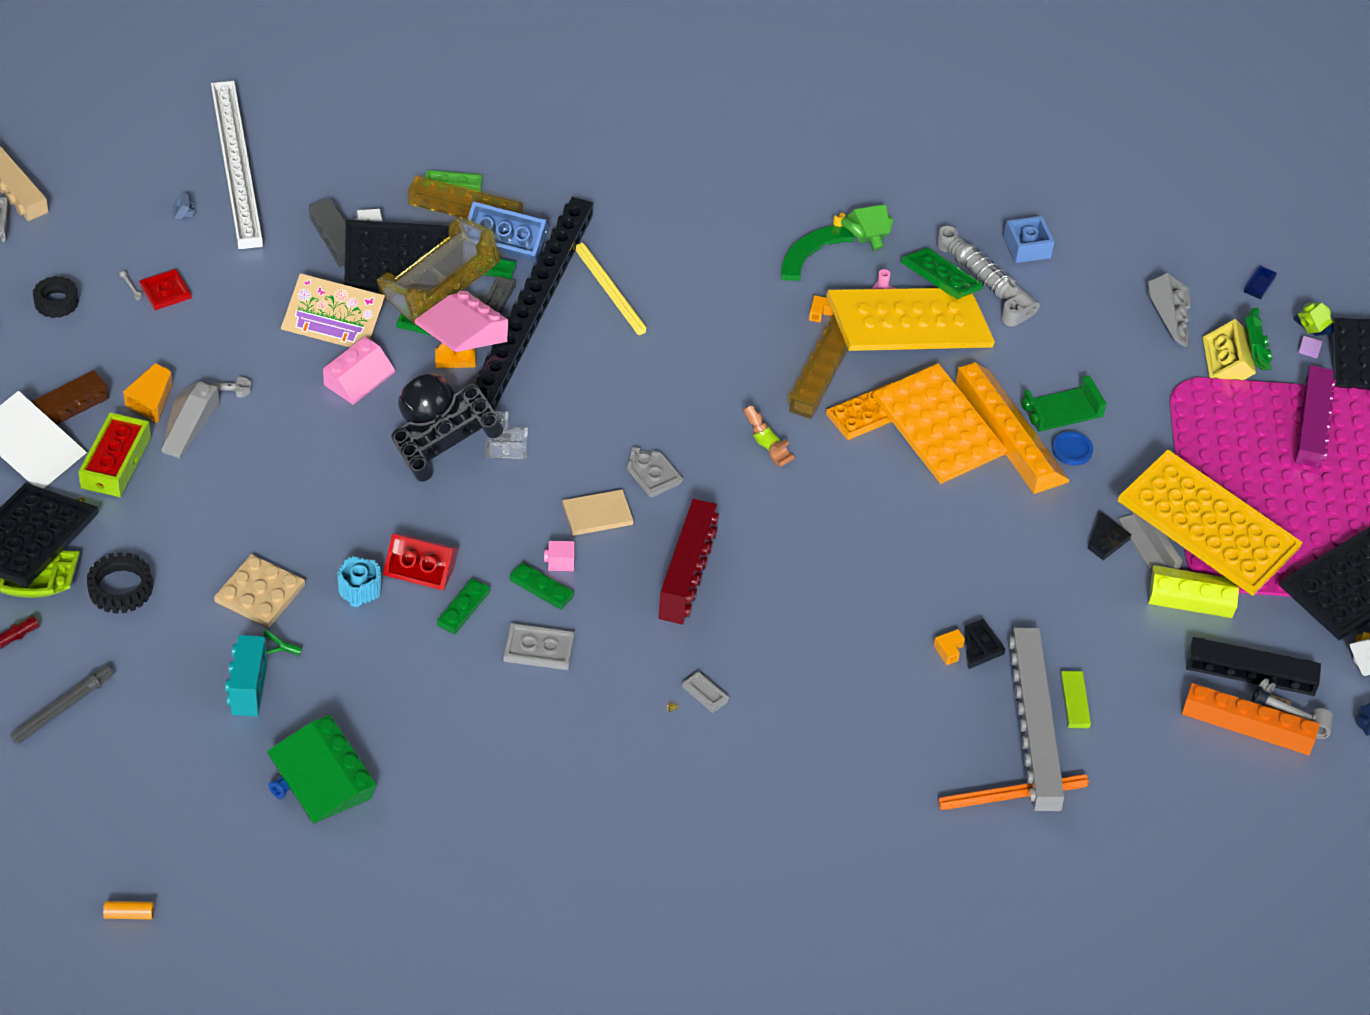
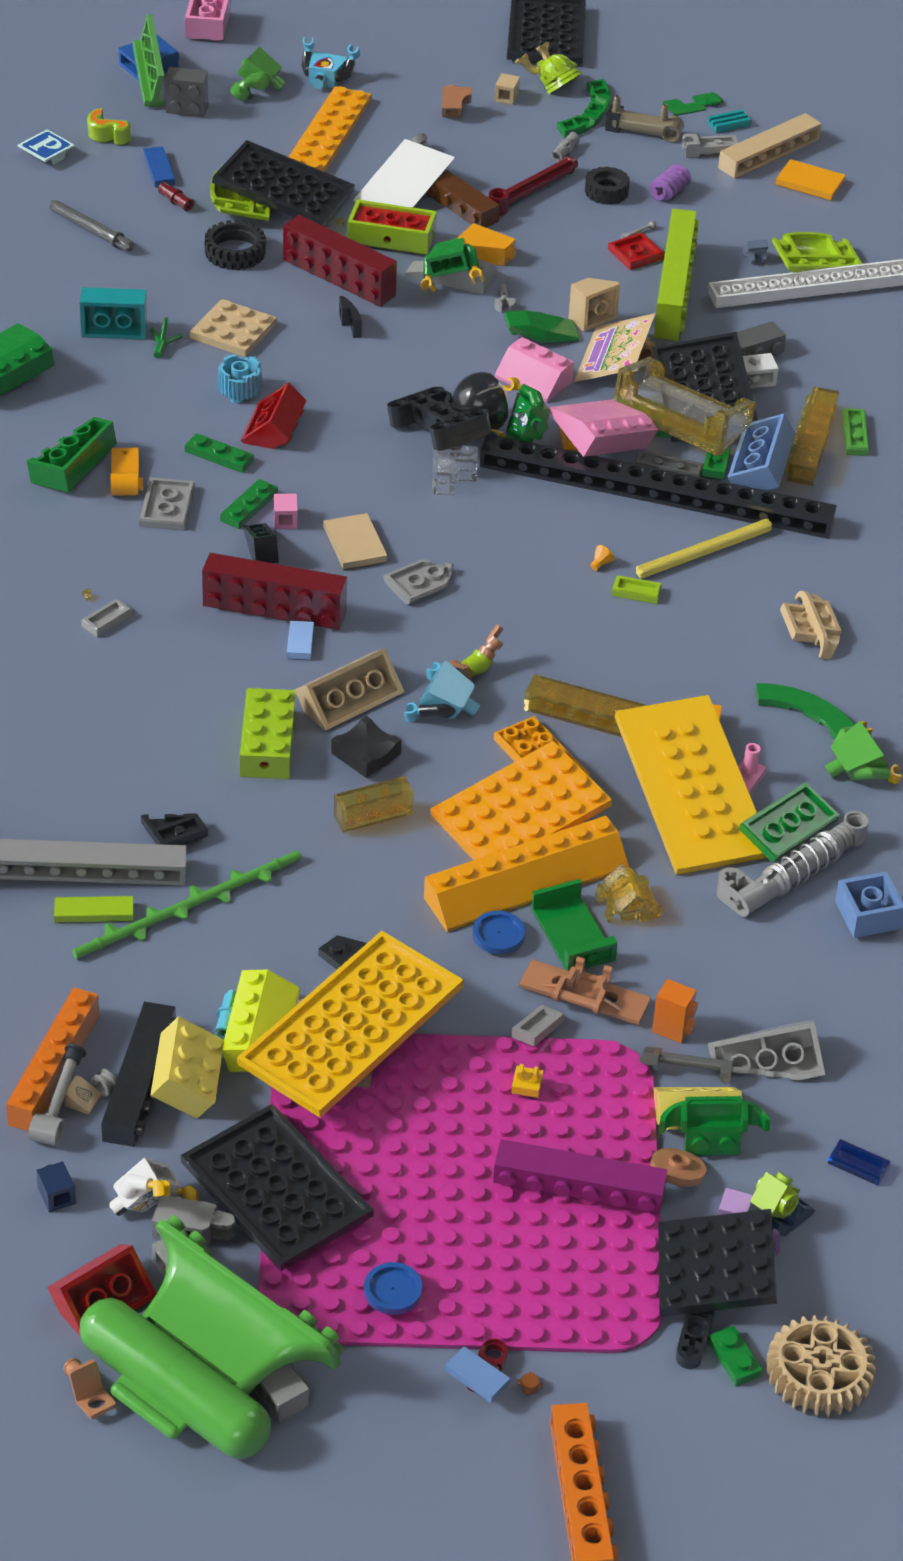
camera: 90 degrees right, 5 degrees down
(63, 250) = (670, 182): none -> medium lavender piece
(64, 160) = (810, 179): none -> light orange tile
(67, 369) = (531, 184): none -> dark red piece
(174, 495) = (339, 260): none -> dark red brick
(196, 406) = (450, 258): none -> green torso
(197, 166) = (814, 251): none -> lime slope
(225, 257) = (676, 275): none -> lime brick
(264, 494) = (350, 316): none -> black slope
(269, 319) = (593, 302): none -> tan slope
(289, 361) = (541, 326): none -> green piece
(454, 367) = (528, 413): none -> green torso
(481, 711) = (73, 456): none -> green wedge
(509, 678) = (125, 472): none -> light orange door
(606, 574) = (261, 542): none -> black slope
(623, 350) = (602, 557): none -> light orange rock
(662, 335) = (636, 589): none -> lime tile
(706, 234) = (812, 623): none -> tan plate
(733, 555) = (300, 640): none -> light blue tile
(802, 522) = (350, 690): none -> tan slope
(811, 455) = (445, 694): none -> medium azure torso
(864, 576) = (267, 733): none -> lime brick
(876, 513) = (366, 747): none -> black brick
(948, 645) = (169, 801): light orange piece -> none
(949, 509) = (373, 804): none -> clear yellow brick
(1032, 369) = (628, 896): none -> clear yellow piece
(1069, 642) = (180, 909): none -> bright green plant
(1120, 402) = (585, 990): none -> nougat piece
(1153, 351) = (675, 1011): none -> orange brick
(1167, 432) = (537, 1025): none -> light grey tile
(1180, 613) = (224, 1014): none -> medium azure axle
(1190, 369) = (654, 1055): none -> dark grey hinge
(1226, 439) = (527, 1081): none -> yellow tile
(1255, 628) = (187, 1067): none -> light yellow brick
(1288, 369) = (681, 1166): none -> nougat piece

